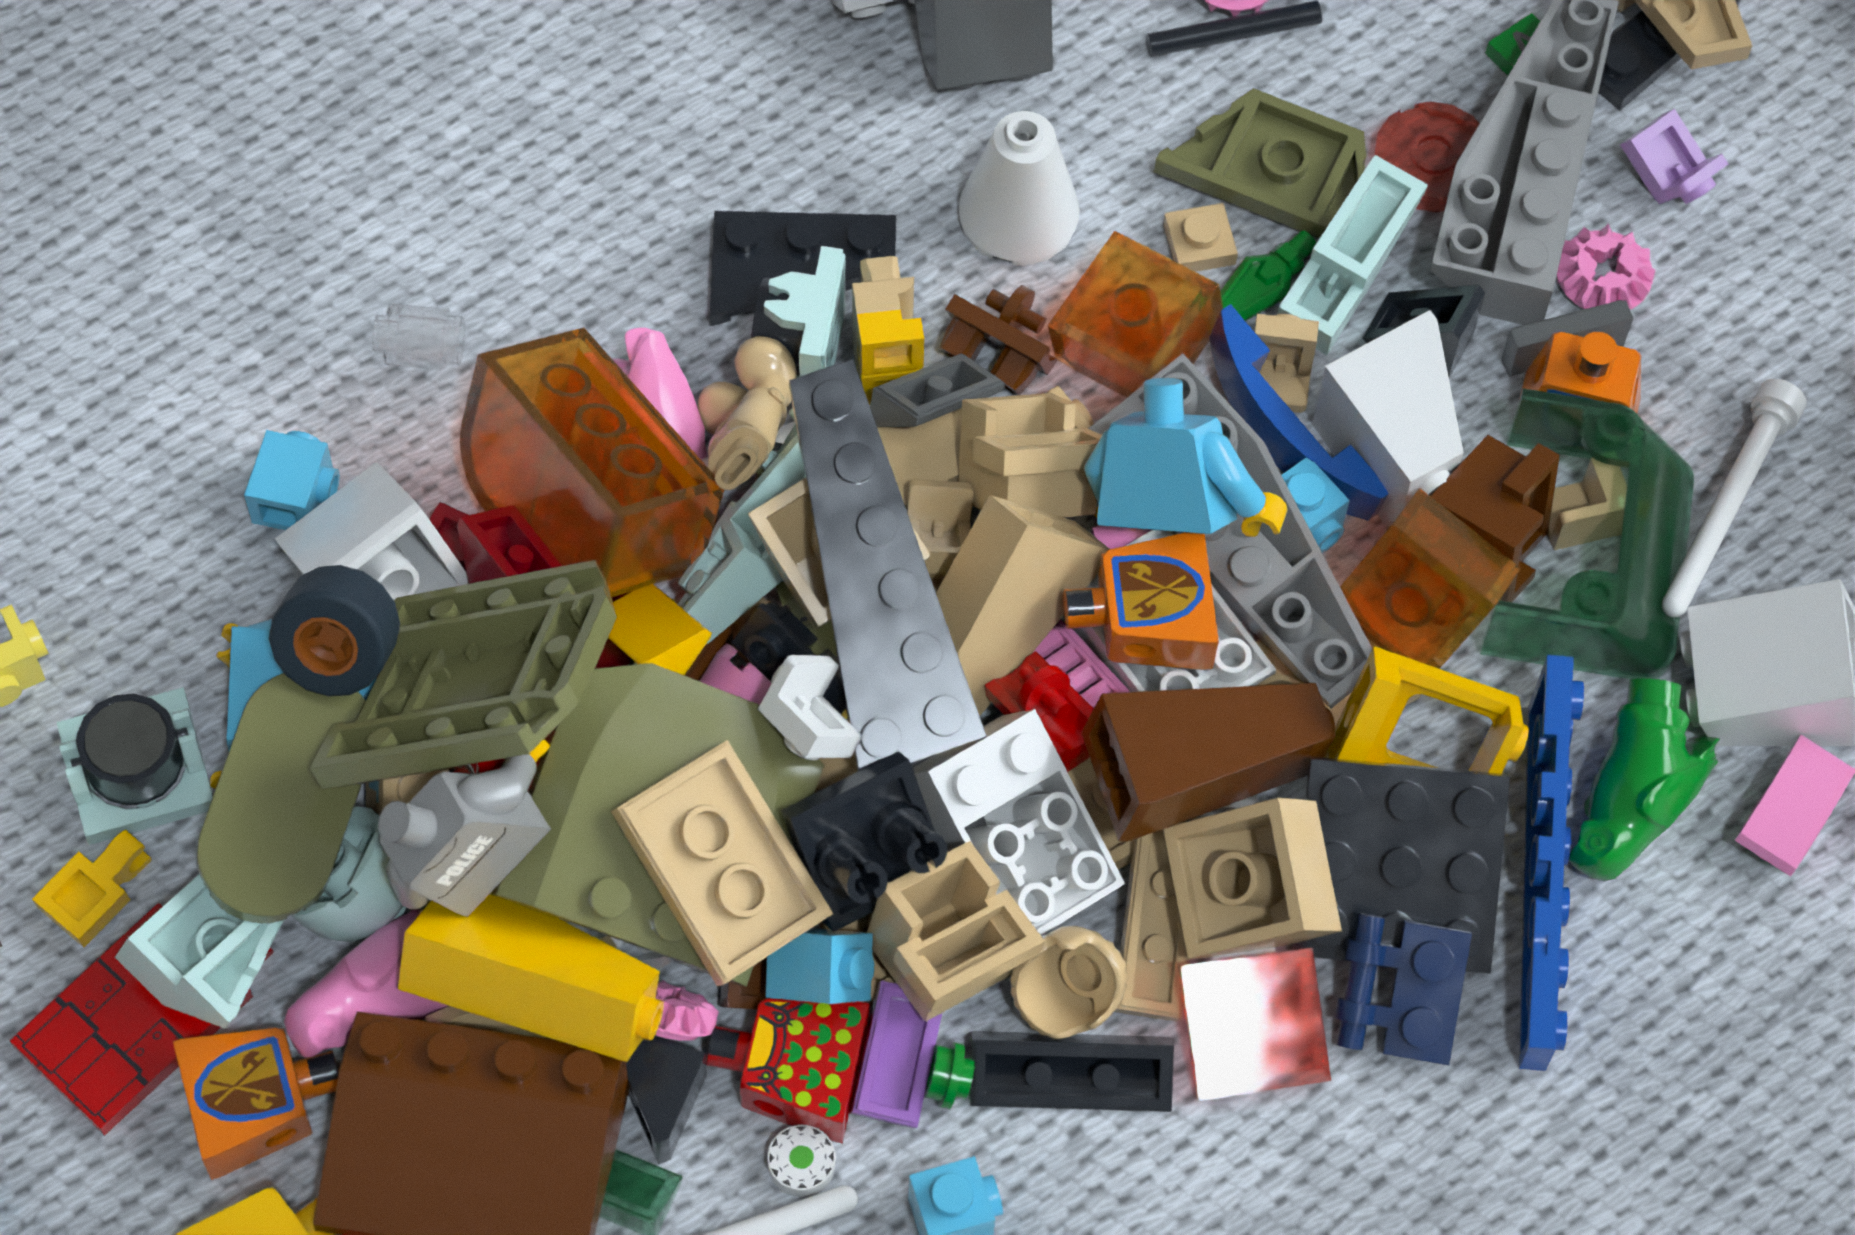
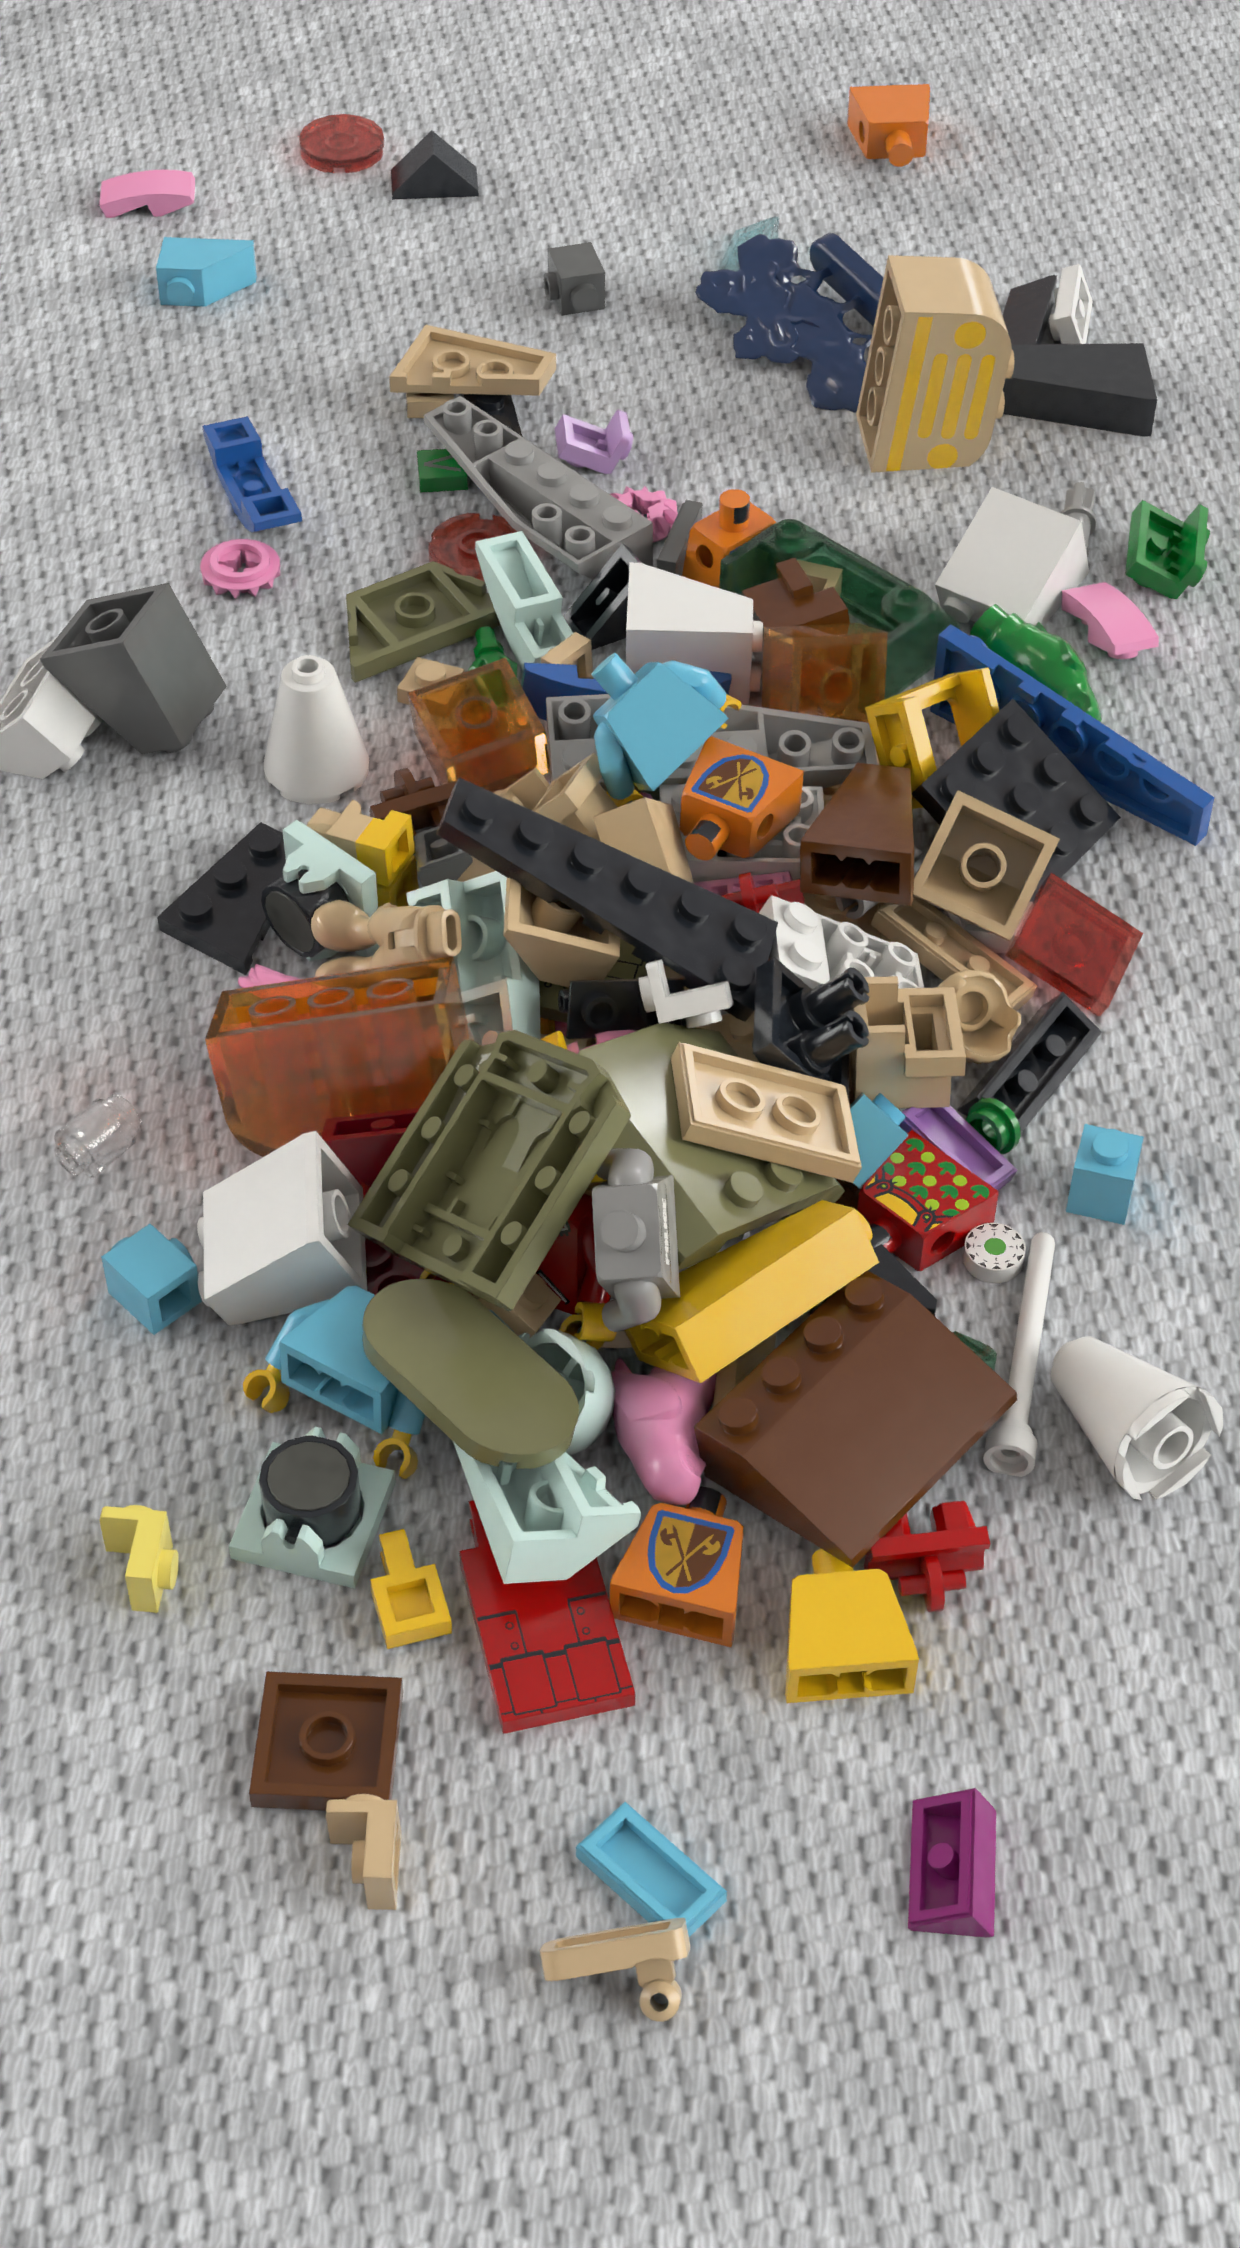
camera: 55 degrees left, 15 degrees down
(334, 630) = (367, 1246): black wheel -> none
(1234, 28) = (281, 591): black bar -> none
(1424, 989) = (1117, 849): dark blue plate -> none
(1774, 412) = (818, 491): white piece -> none

